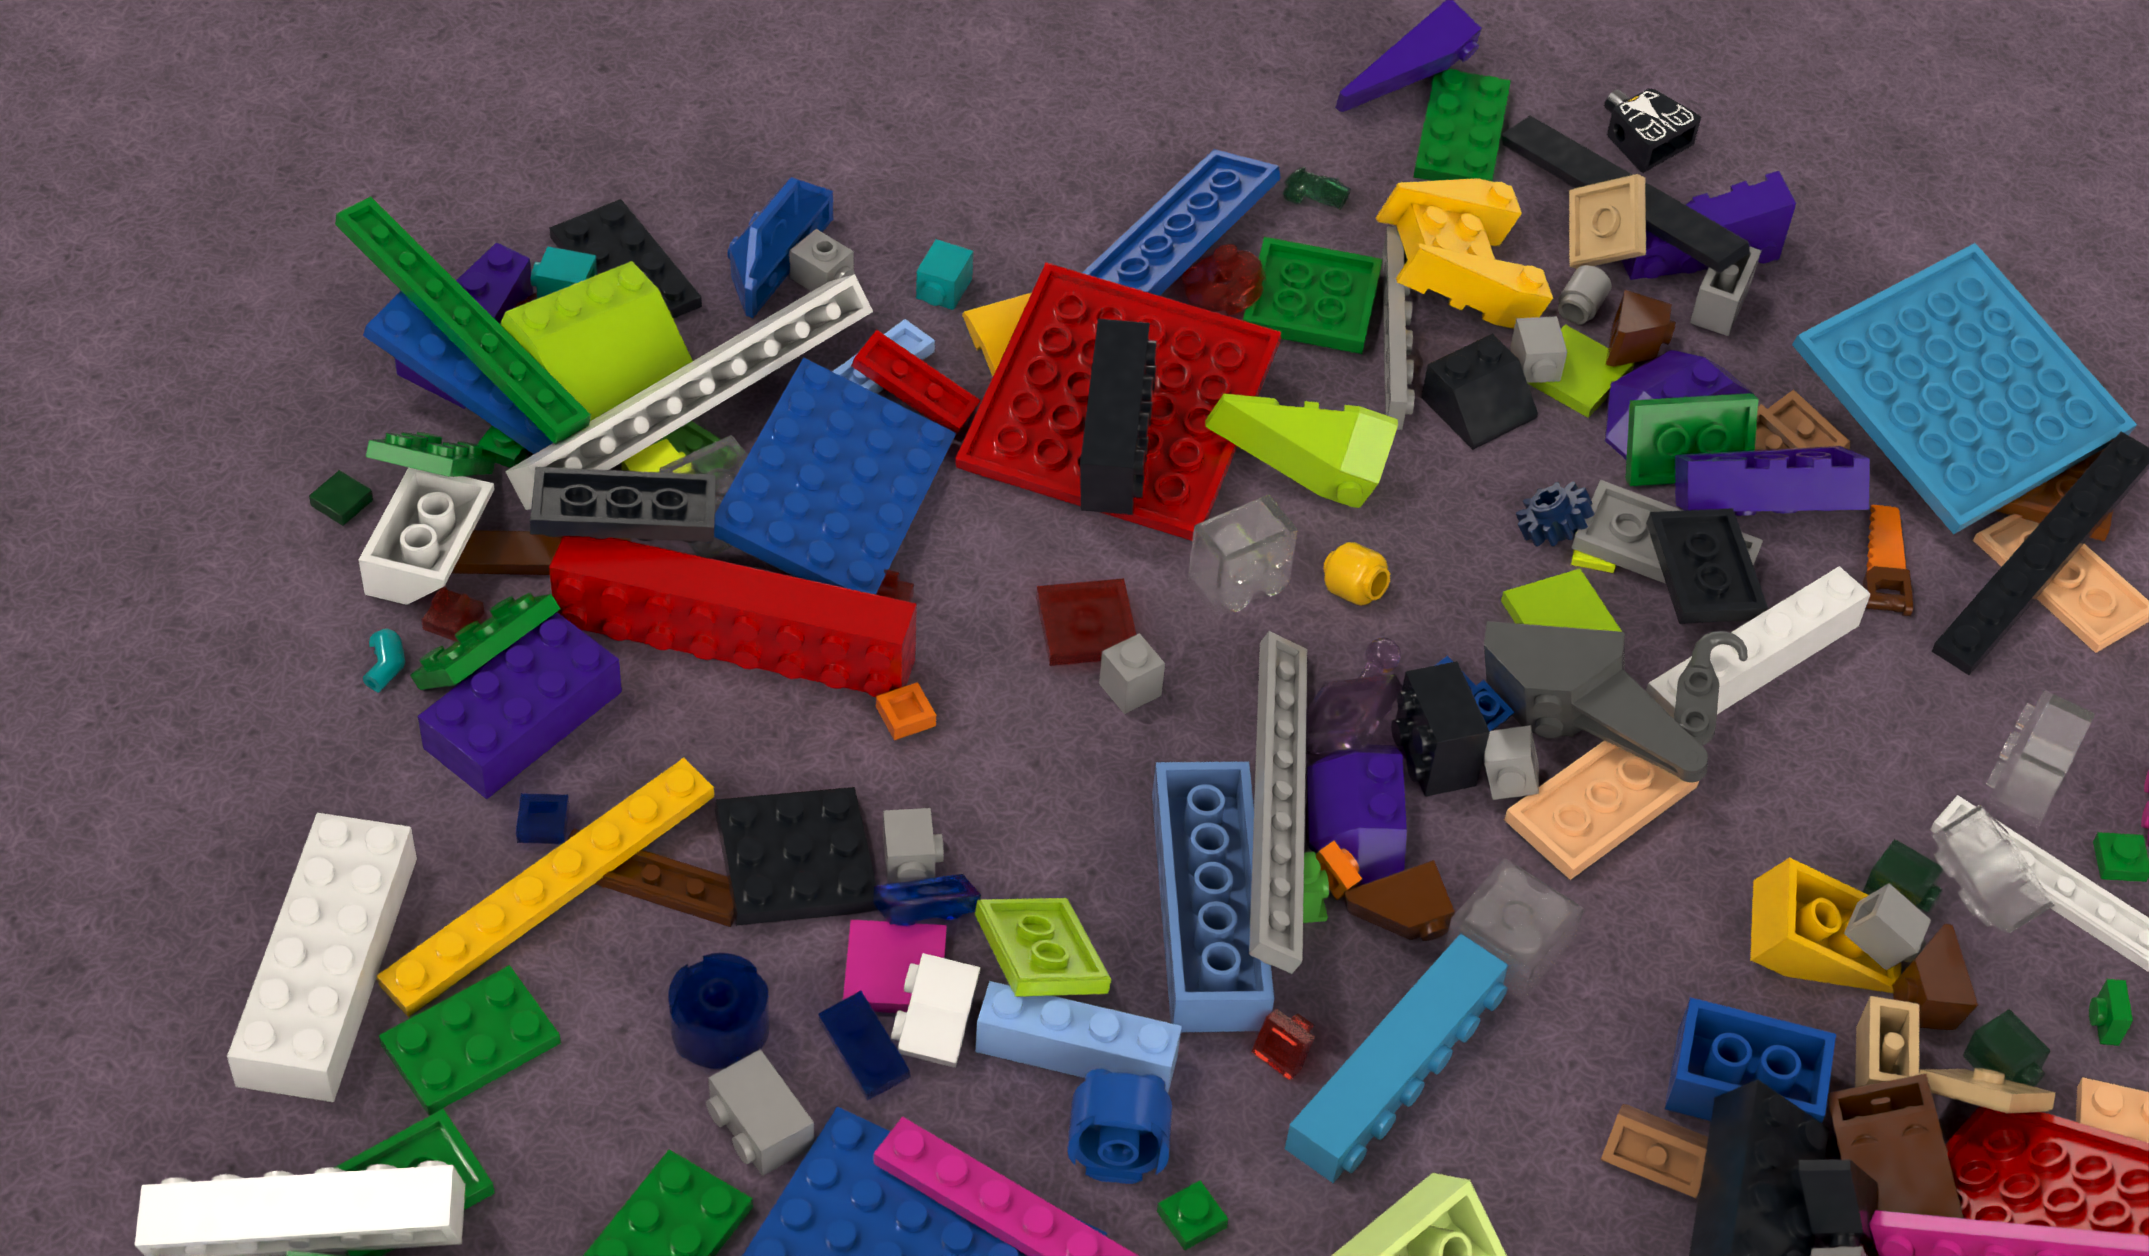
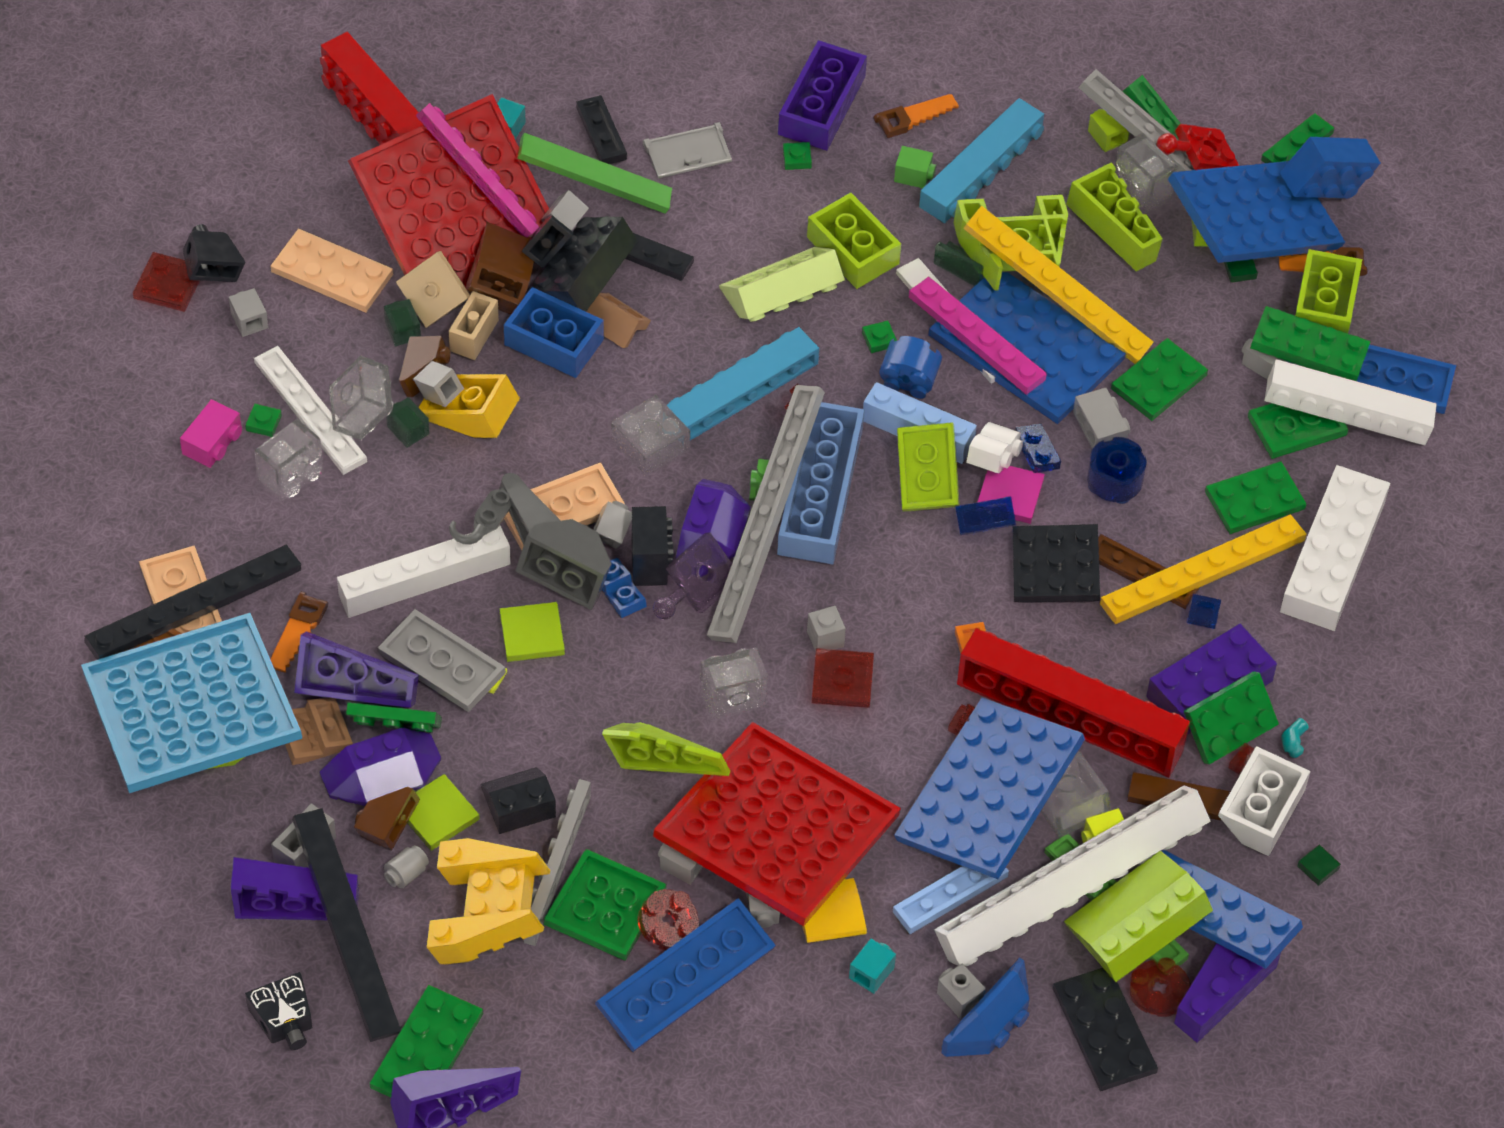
camera: 165 degrees left, 5 degrees up
(426, 453) = (1258, 847): green plate -> none
(463, 320) = (1237, 908): green plate -> none
(561, 269) = (1153, 989): teal brick -> none
(623, 504) = (1137, 749): black plate -> none
(910, 845) = (988, 550): light grey brick -> none
(915, 382) = (916, 865): red plate -> none
(1117, 417) = (792, 771): black brick -> none
(1318, 188) = (567, 1001): clear green arm -> none
(1340, 868) = (743, 480): orange plate -> none
(1356, 573) = (657, 674): yellow head -> none
(1405, 903) = (710, 460): reddish brown slope -> none
(1539, 348) = (467, 808): light grey brick -> none
(1555, 513) = (517, 693): dark blue gear -> none
(1607, 221) = (370, 897): tan plate -> none
(1706, 565) = (431, 620): black plate -> none
(2111, 1012) = (329, 331): green plate -> none

